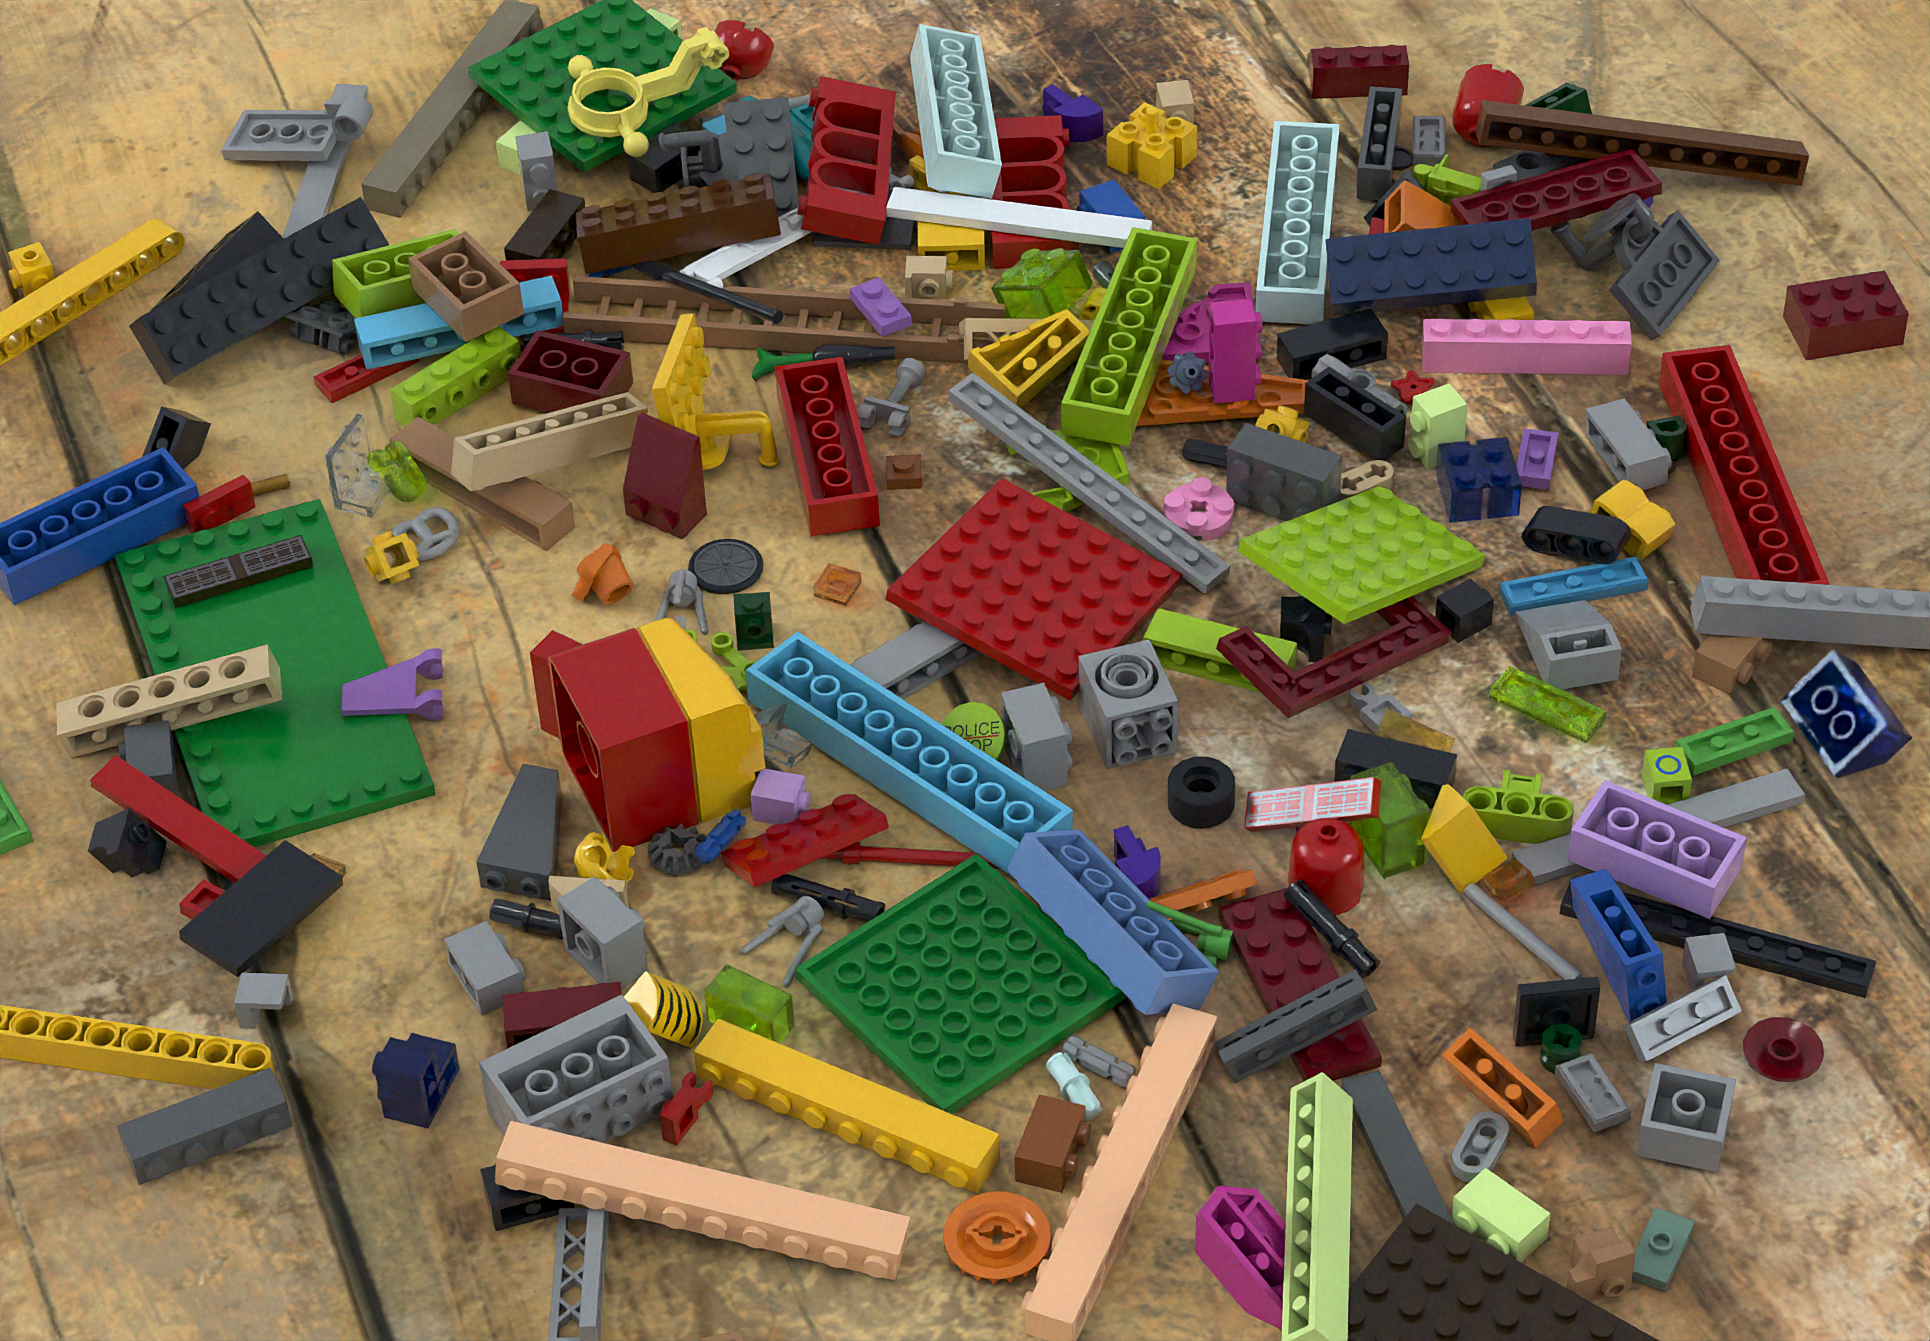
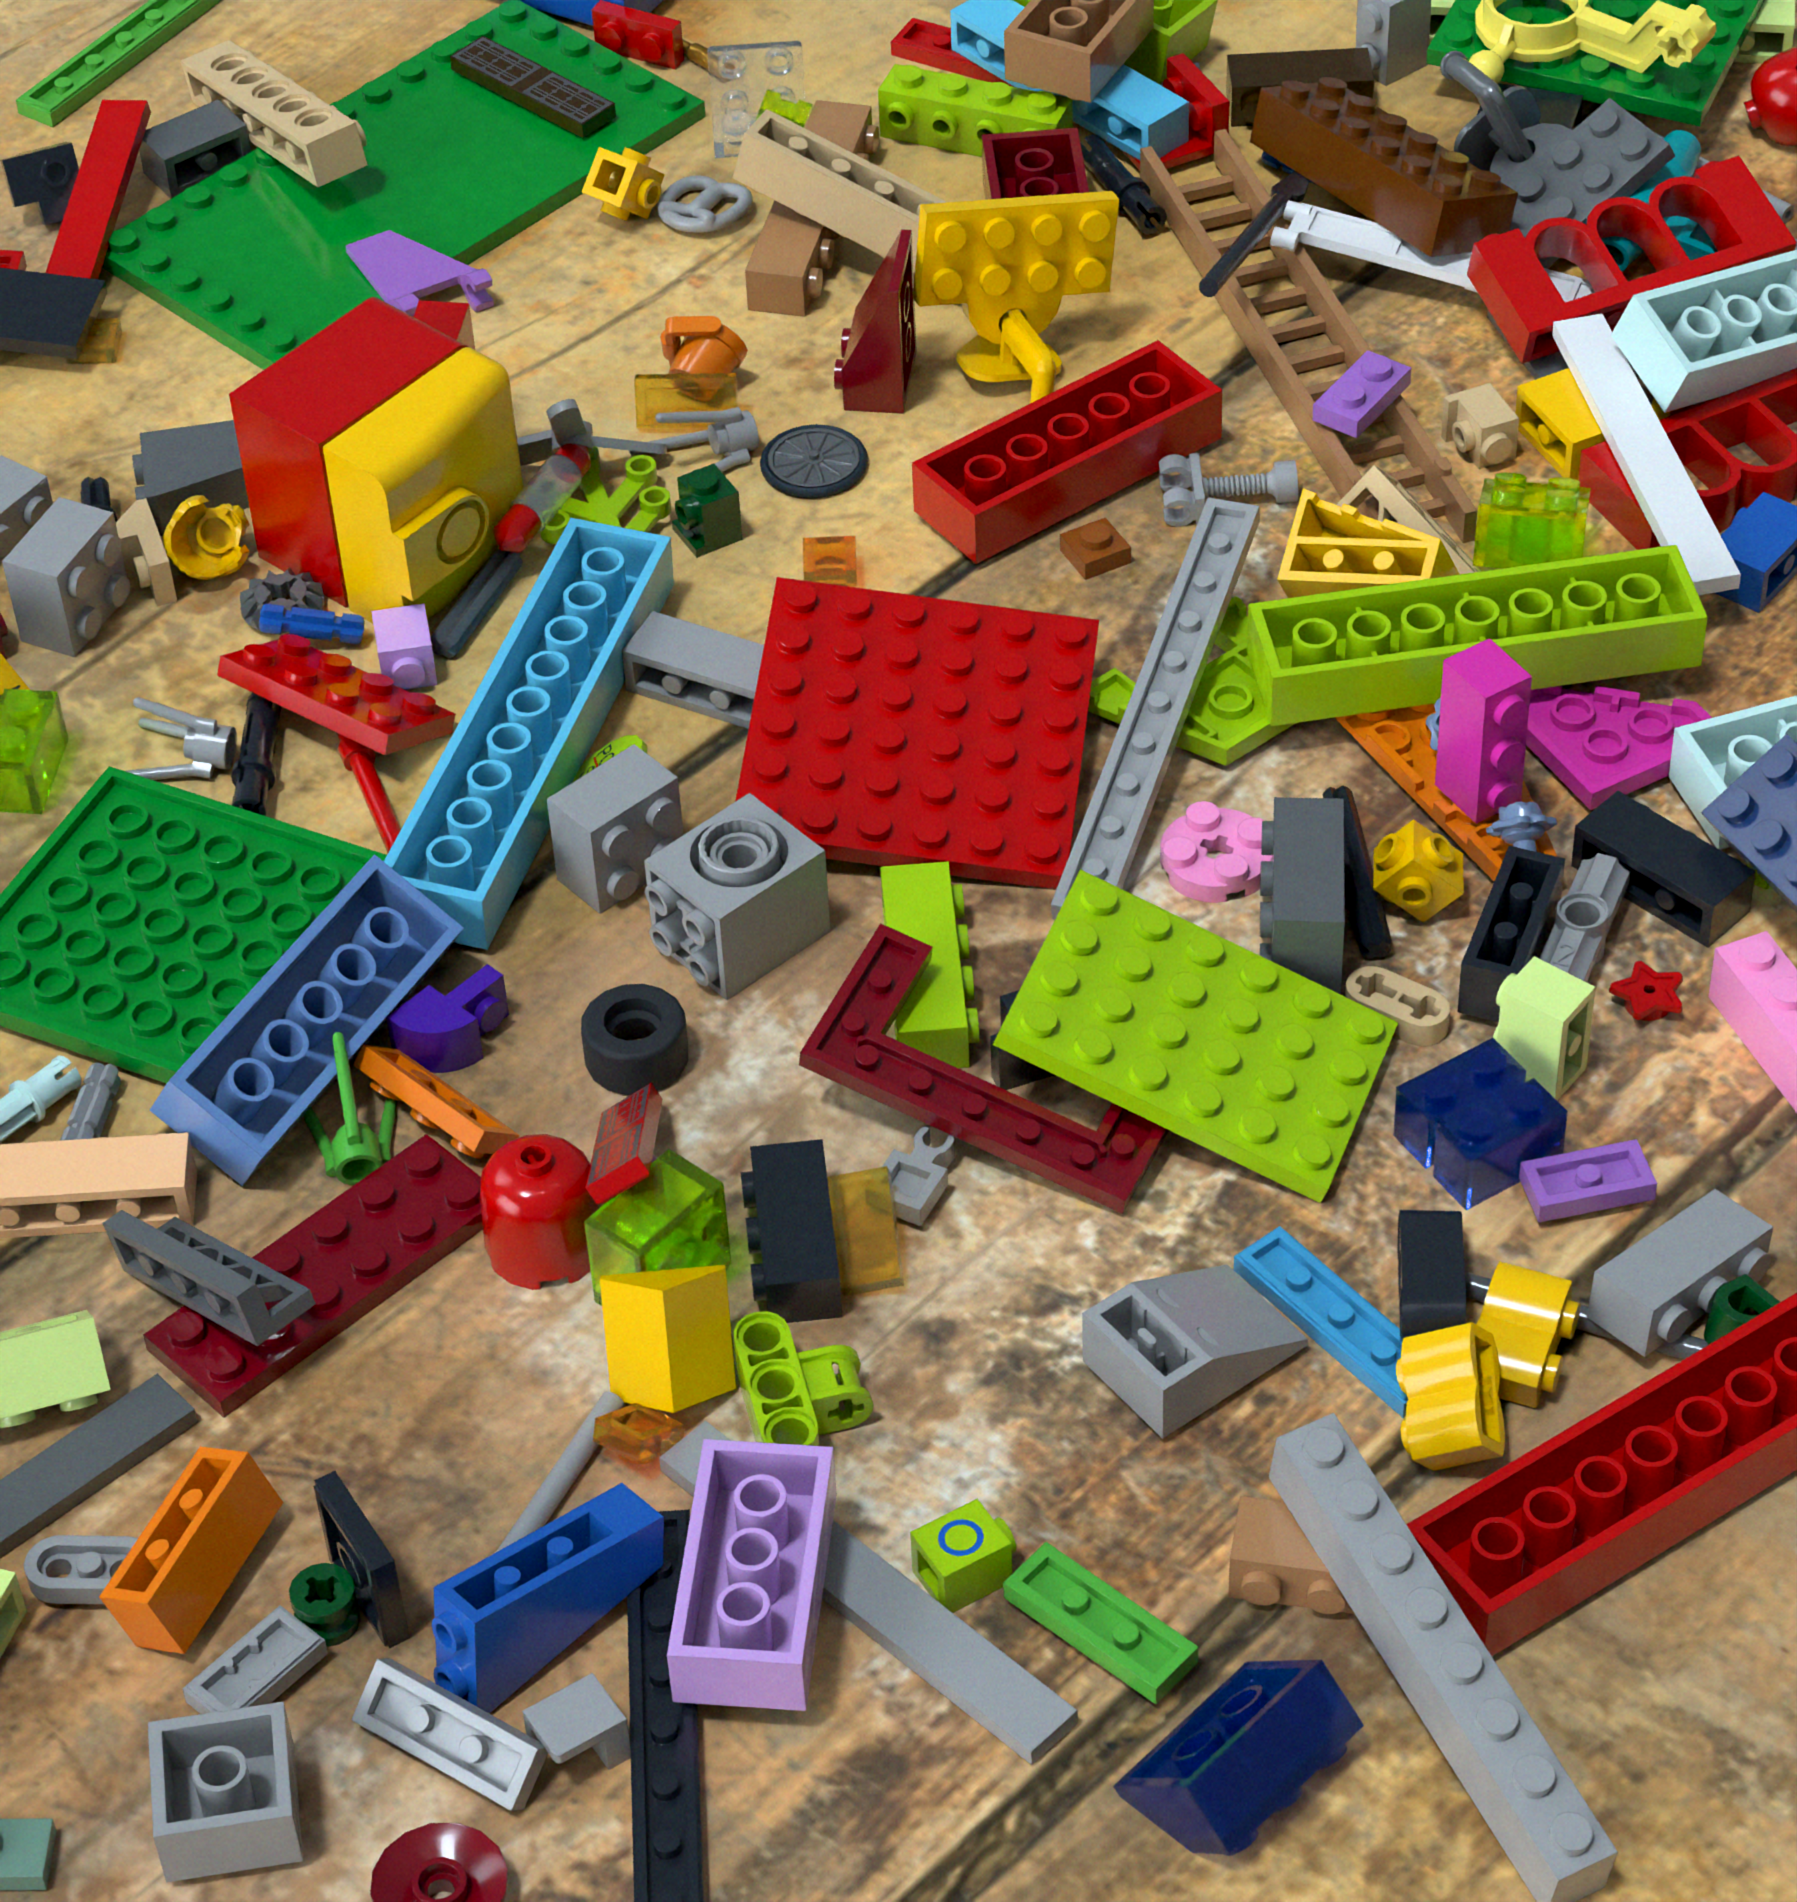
camera: 65 degrees right, 0 degrees up
(635, 597) = (682, 394): none -> clear yellow tile
(780, 743) = (499, 600): clear slope -> none
(852, 355) = (1256, 396): black piece -> none
(1284, 377) = (1521, 825): none -> sand blue plant
(1342, 940) = (421, 1281): black pin -> none
(1465, 610) = (1183, 1201): black brick -> none
(1547, 704) = (1043, 1366): clear neon green plate -> none
(1669, 553) = (1451, 1397): none -> yellow brick

